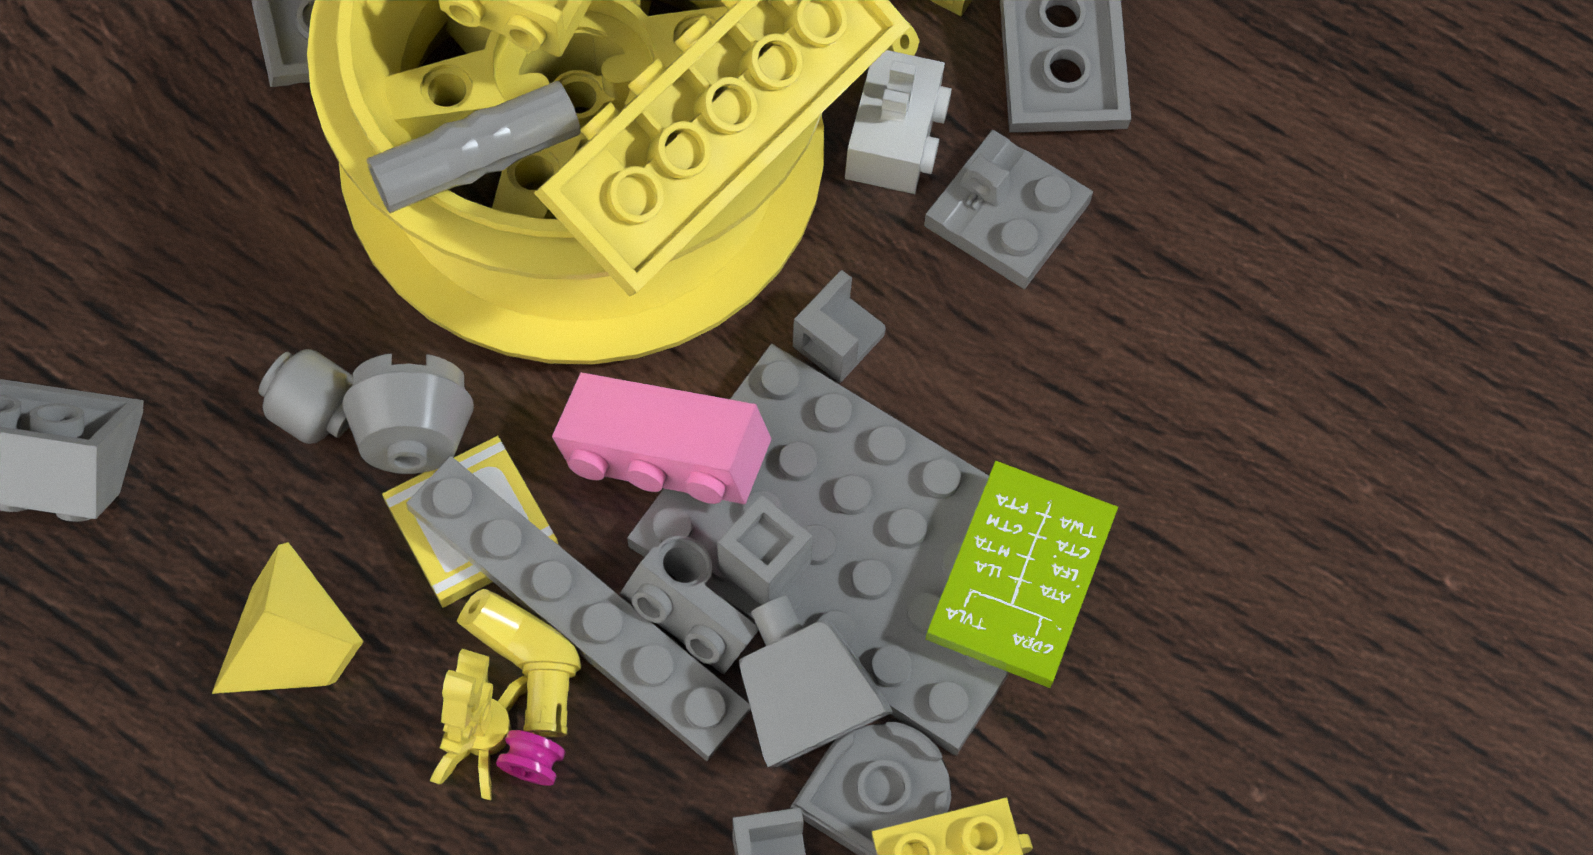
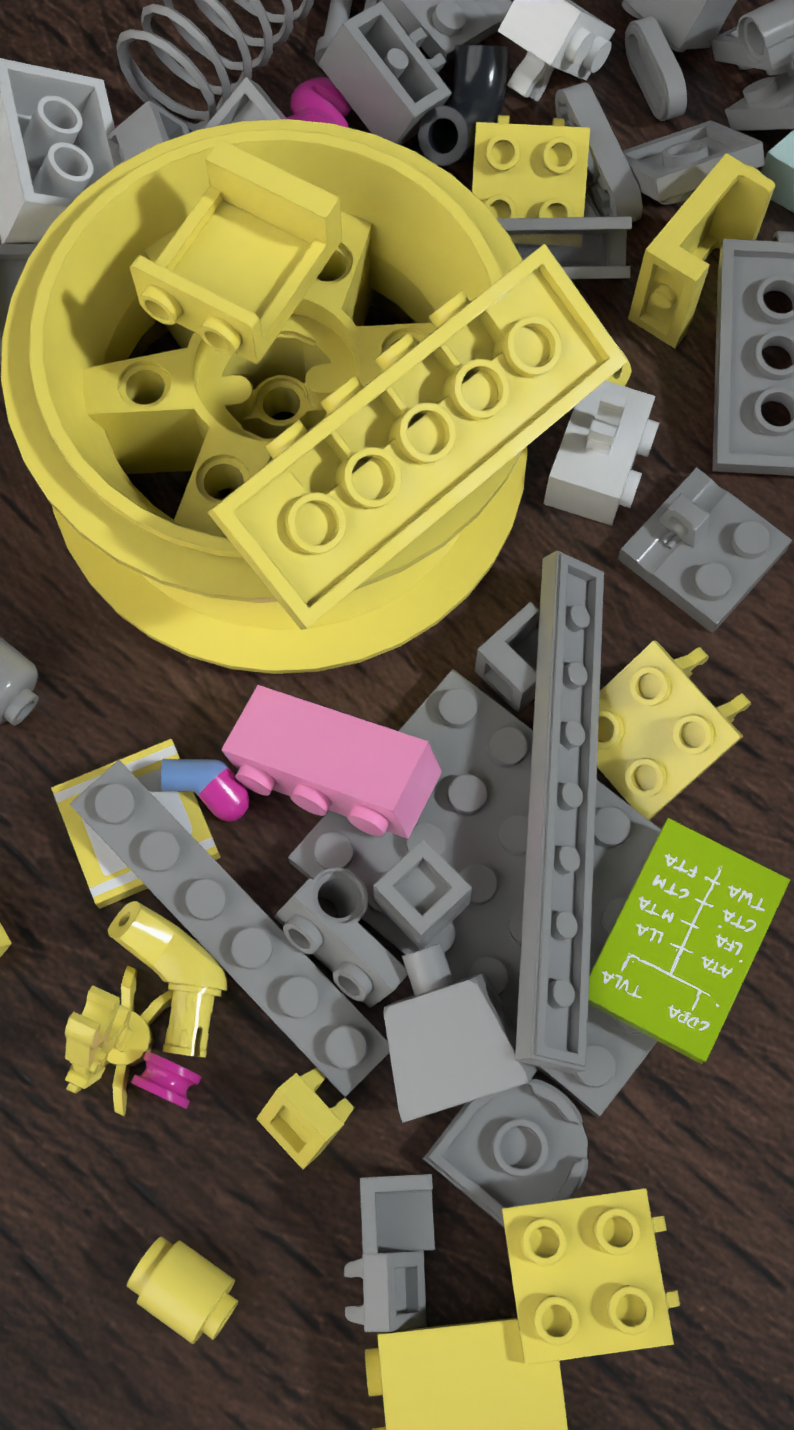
camera: 10 degrees right, 5 degrees up
(407, 413) = (80, 712): light grey cone -> none
(473, 146) = (153, 454): light grey axle -> none
(544, 472) = (210, 781): none -> arm
(669, 779) = (301, 1118): none -> light yellow tile
(892, 466) = (561, 819): none -> light grey tile
(975, 381) = (661, 728): none -> light yellow plate

